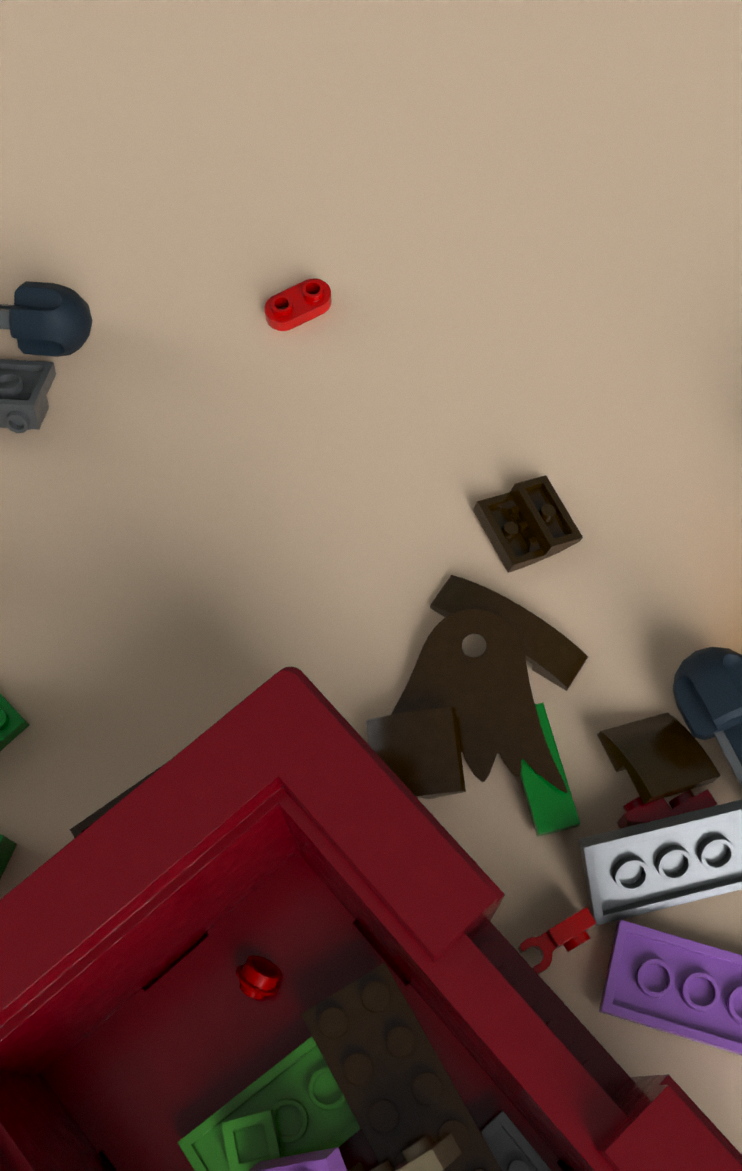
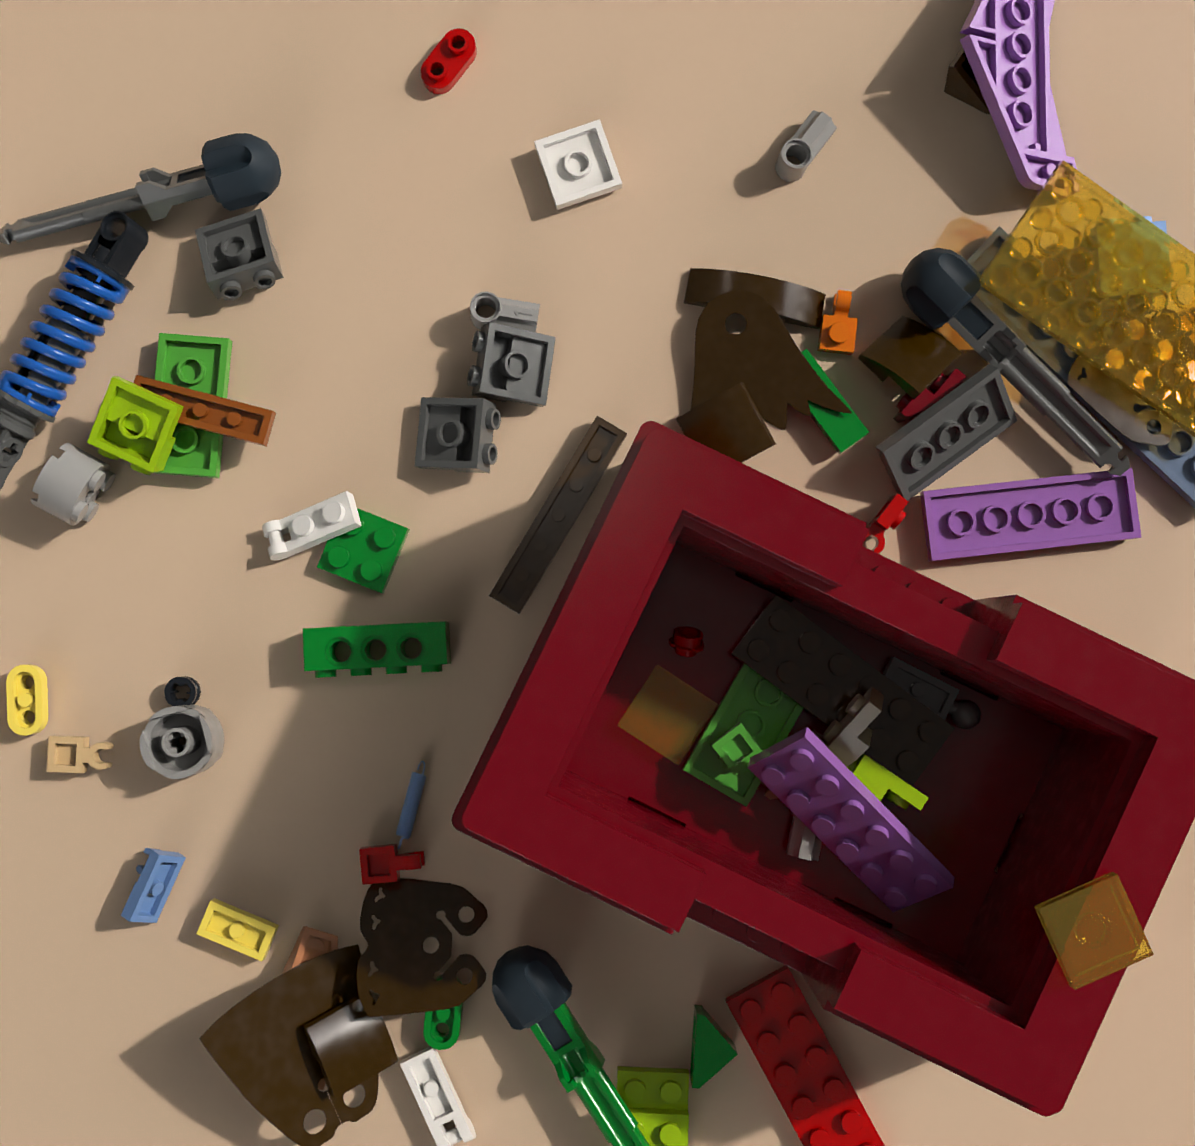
camera: 25 degrees left, 20 degrees up
(126, 643) = (457, 434): none -> dark grey plate
(194, 1062) = (667, 714): none -> clear yellow tile
(218, 596) = (511, 364): none -> dark grey plate
(237, 545) = (507, 312): none -> light grey piece
(378, 435) = (578, 164): none -> white plate
(527, 523) = (734, 196): dark brown slope -> none
(587, 699) = (838, 330): none -> orange plate
(620, 500) = (804, 145): none -> light grey piece

